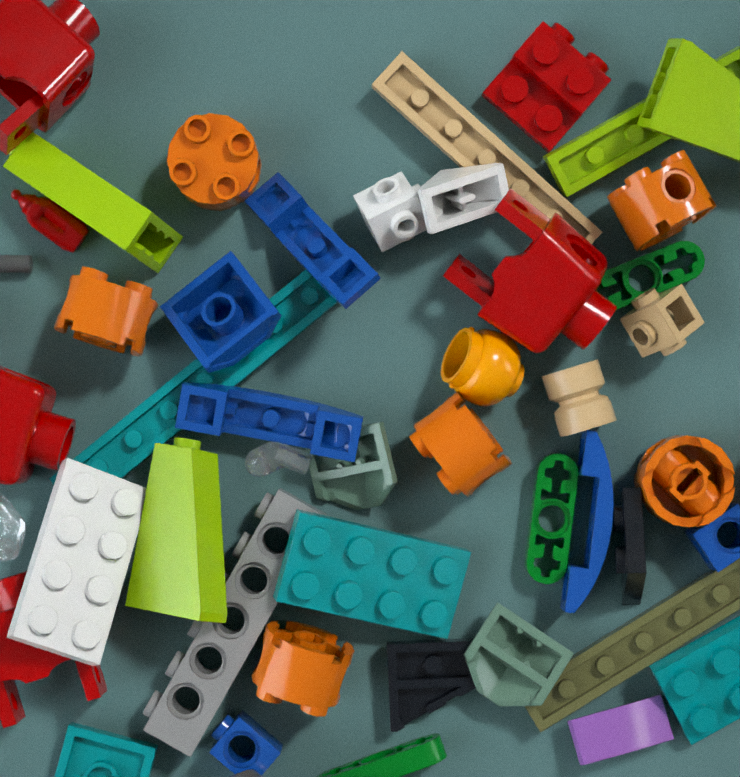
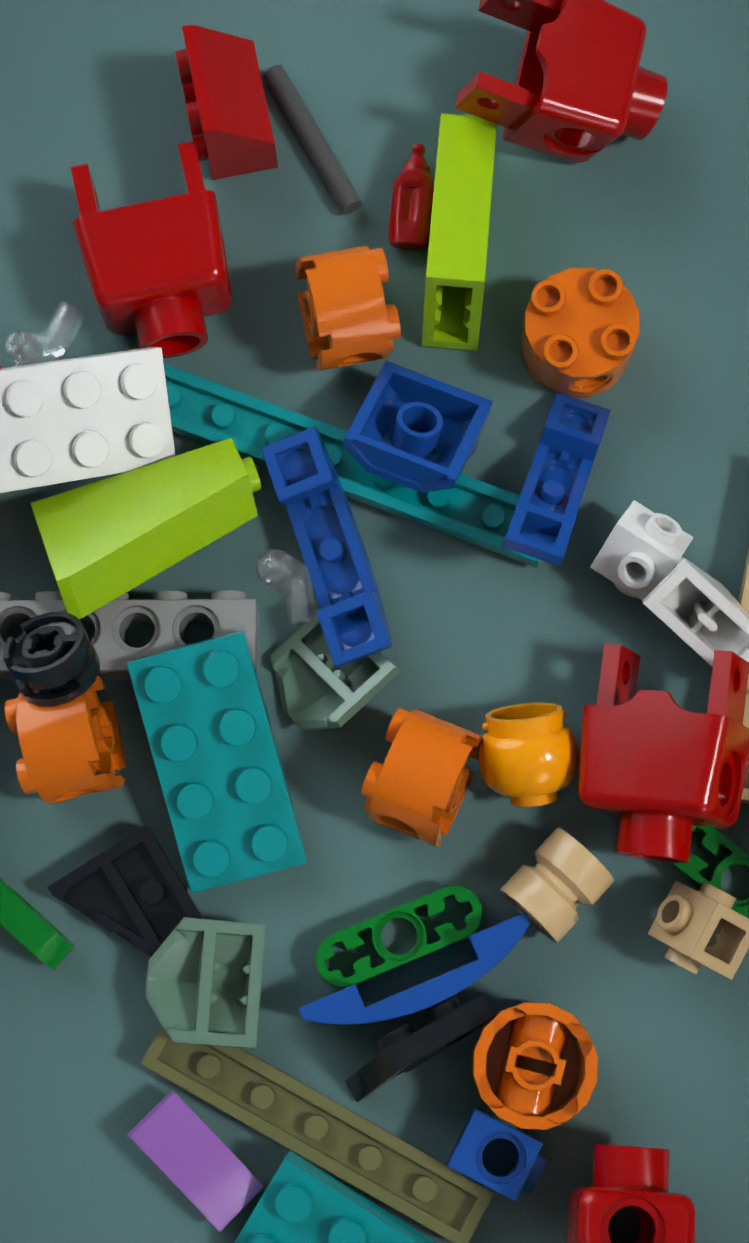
camera: 65 degrees right, 10 degrees down
(246, 650) = (52, 658): none -> black wheel

